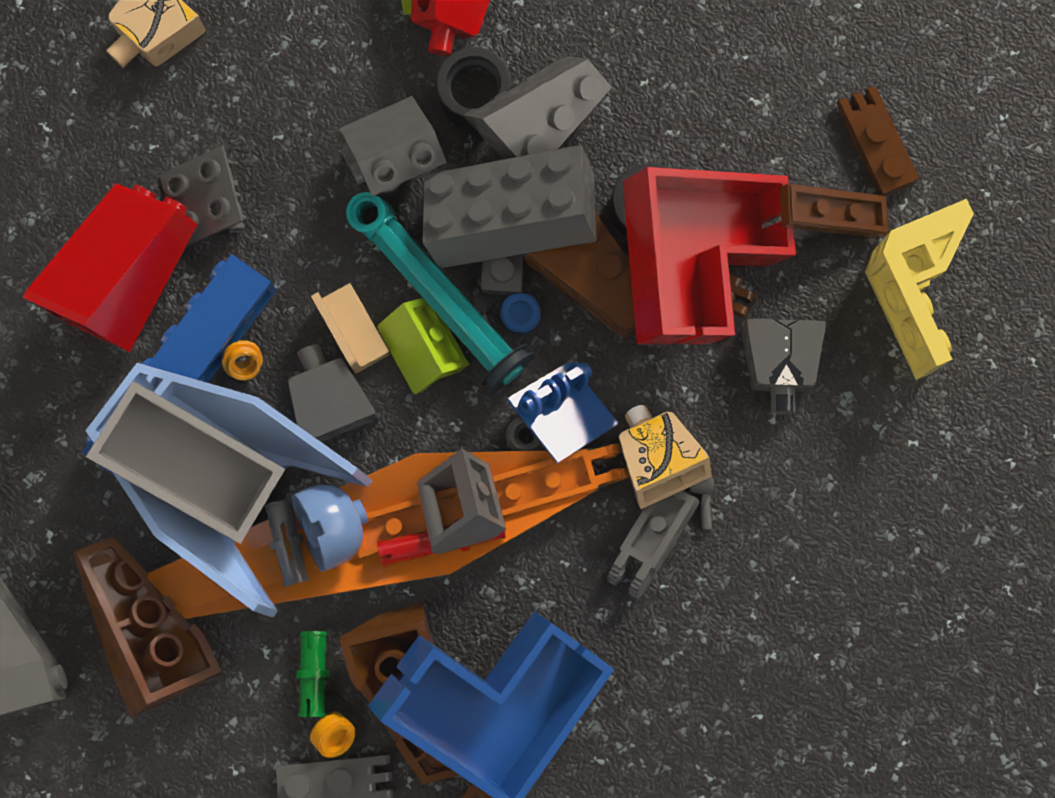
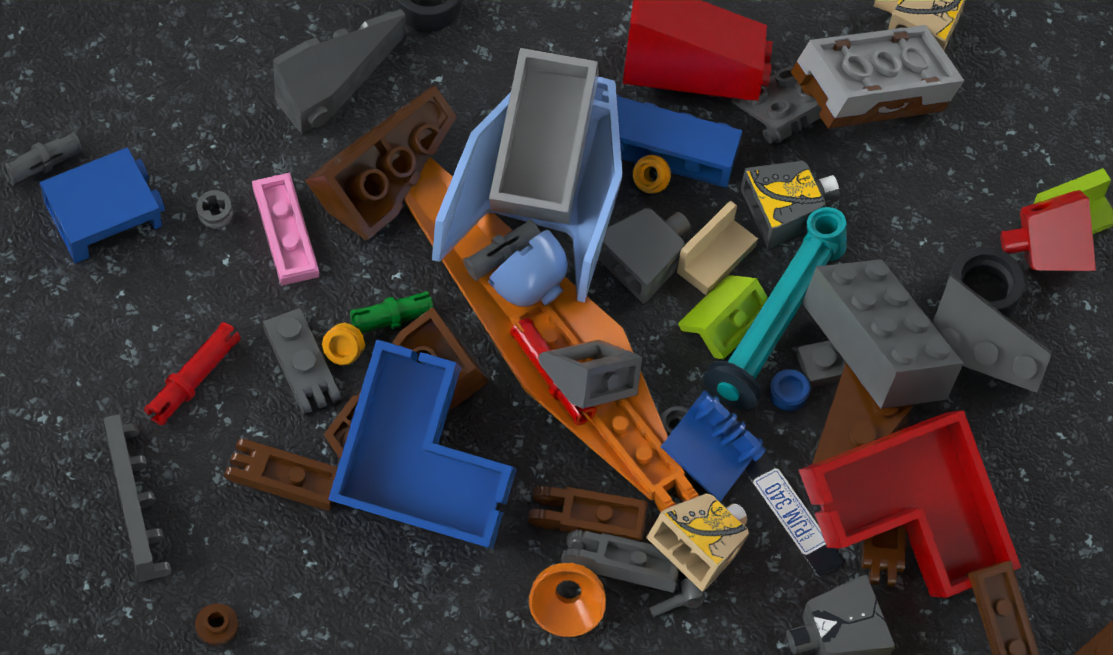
camera: 65 degrees right, 20 degrees down
(175, 751) = (285, 229): none -> bright pink tile
(220, 98) = (877, 76): none -> light grey piece
(317, 238) = (784, 198): none -> torso
(391, 146) = (895, 226): dark grey brick -> none
(595, 548) = (589, 512): none -> reddish brown hinge
(645, 361) = (793, 514): none -> sticker
(681, 607) = (564, 615): none -> orange piece

